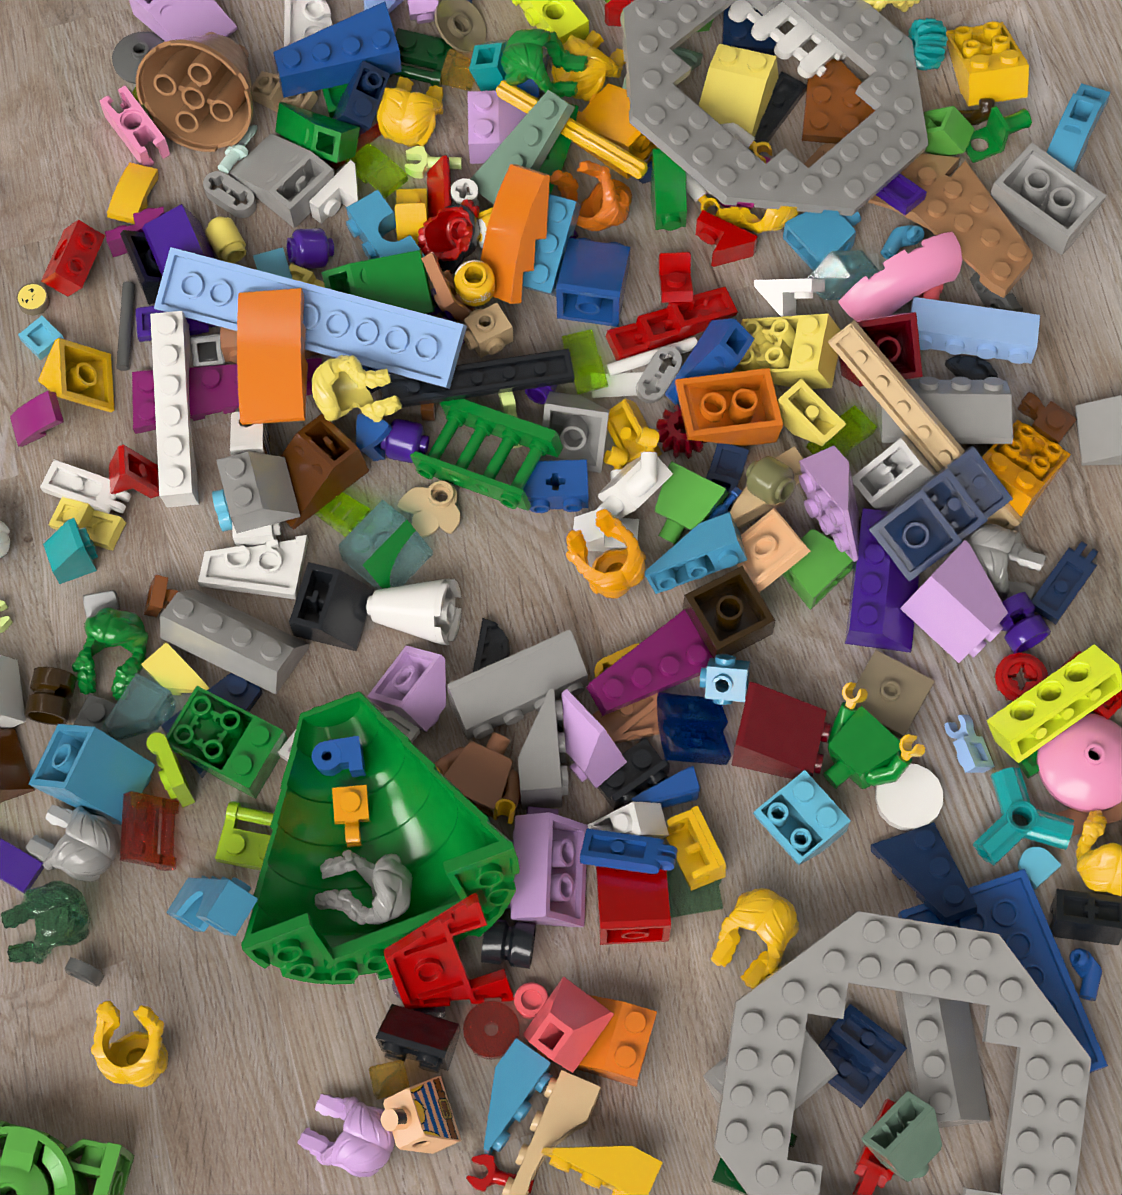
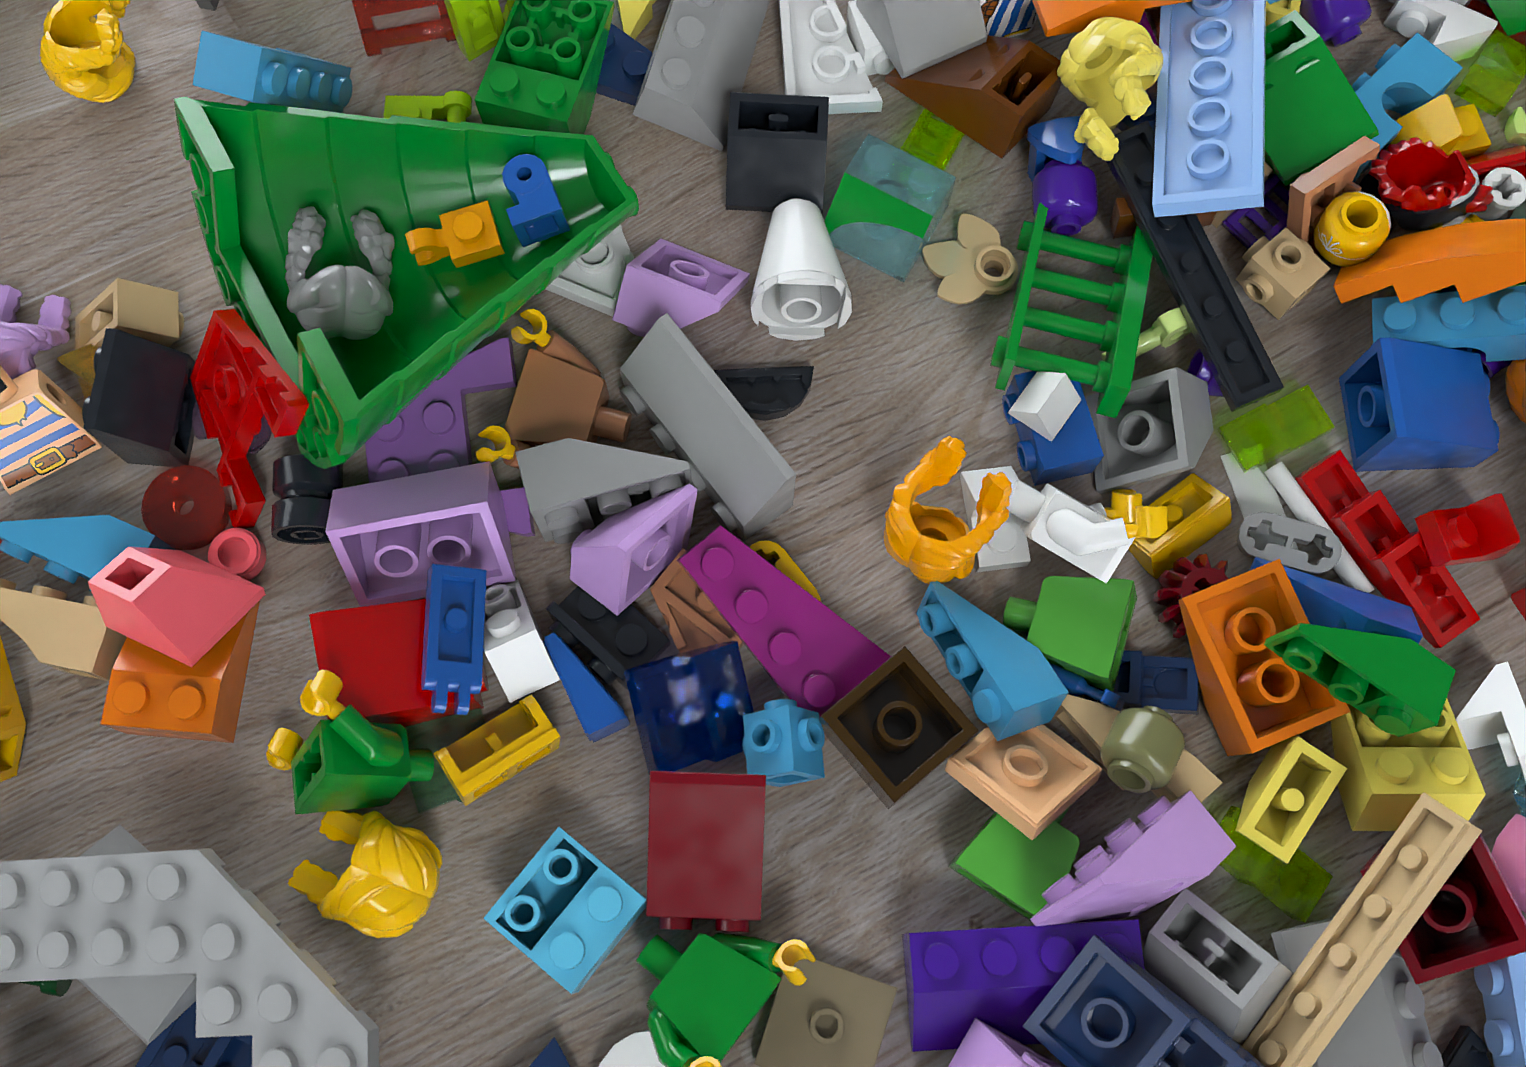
camera: 75 degrees right, 5 degrees up
(352, 1054) = (131, 308): none -> tan slope
(548, 483) = (1046, 403): none -> white slope
(692, 934) = (346, 758): none -> green torso
(755, 346) = (1375, 673): none -> green slope

